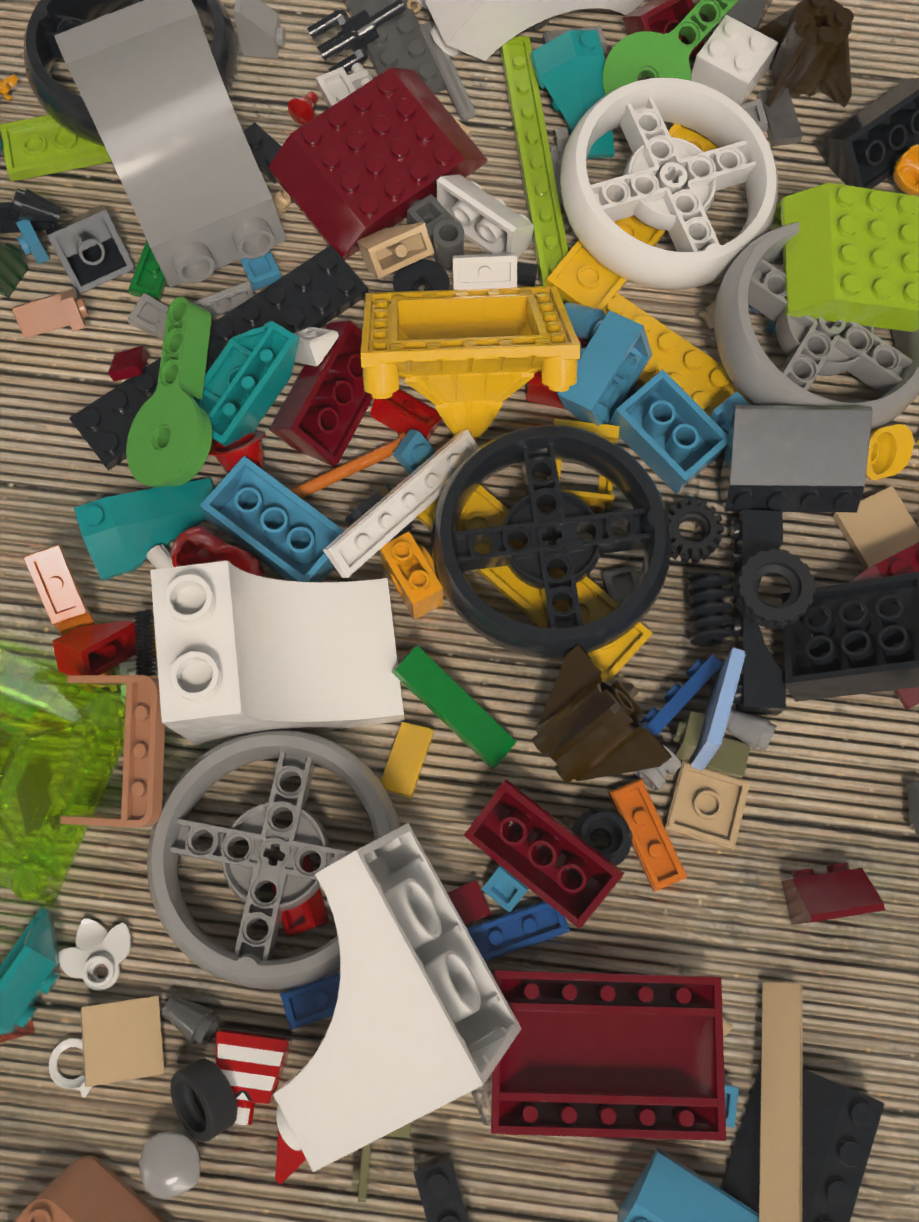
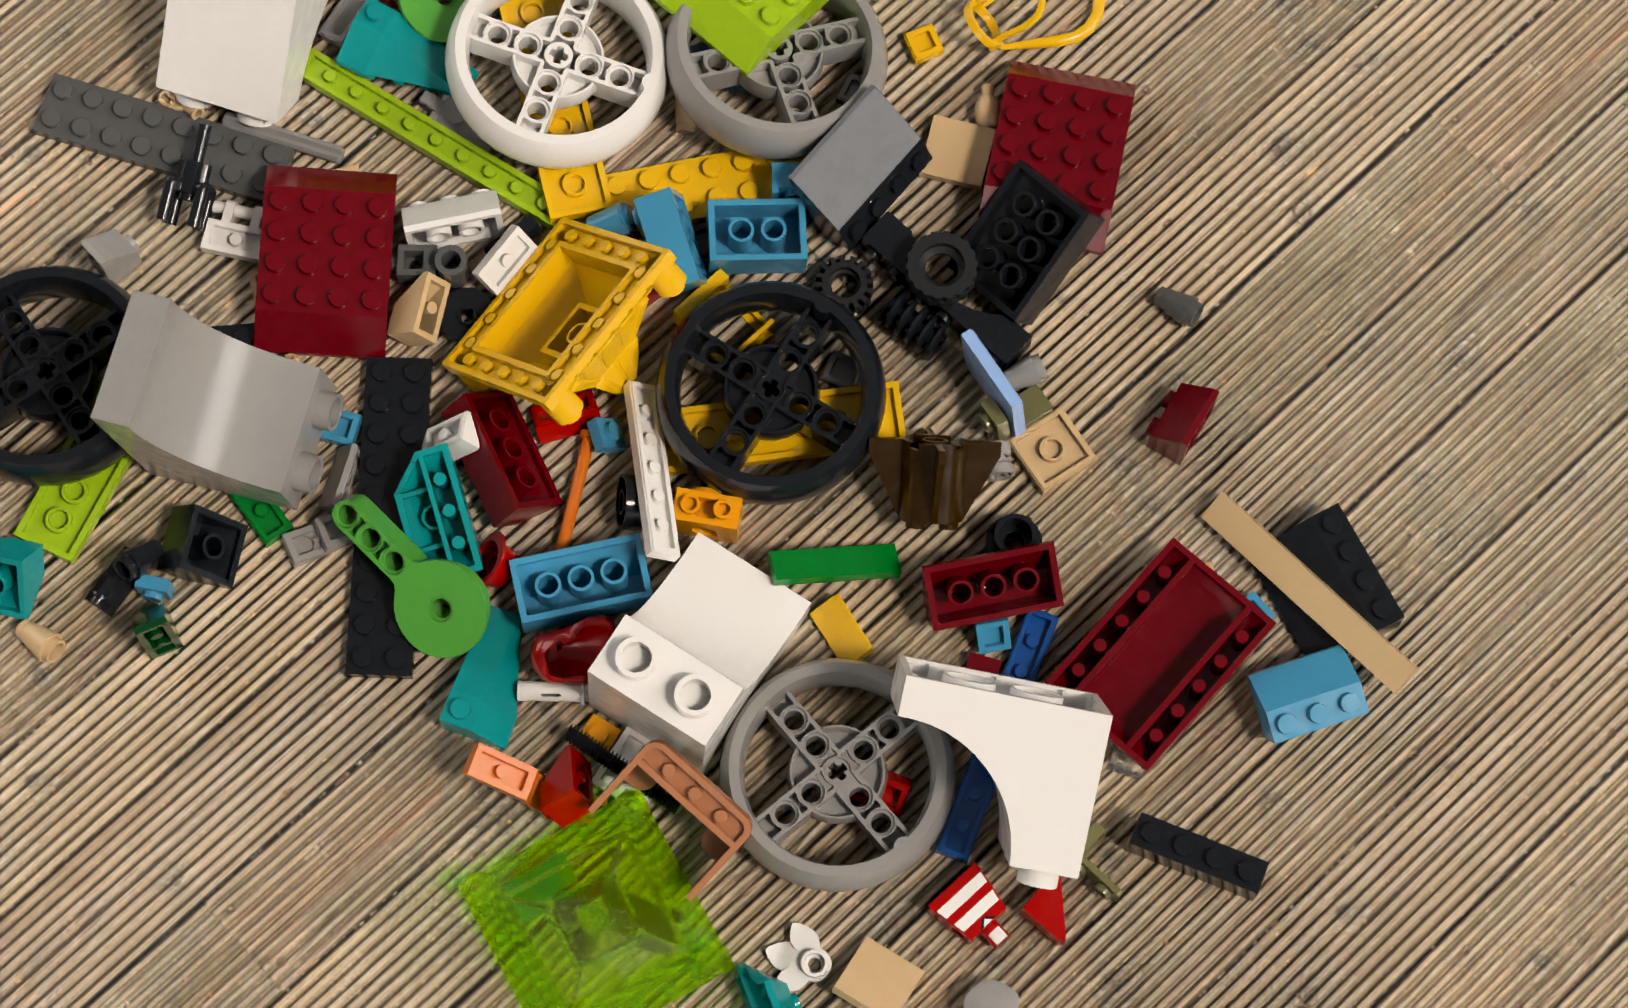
camera: 50 degrees left, 0 degrees up
(51, 313) = (238, 616): nougat bracket -> none
(128, 364) = (337, 592): dark red tile -> none
(191, 1019) = (902, 924): dark grey cone -> none
(203, 1099) = (966, 931): black tyre -> none
(302, 108) = (217, 279): red rock -> none
(648, 835) = (1045, 510): orange tile -> none
(680, 696) = (960, 400): blue plate -> none
(889, 451) = (907, 93): yellow piece -> none

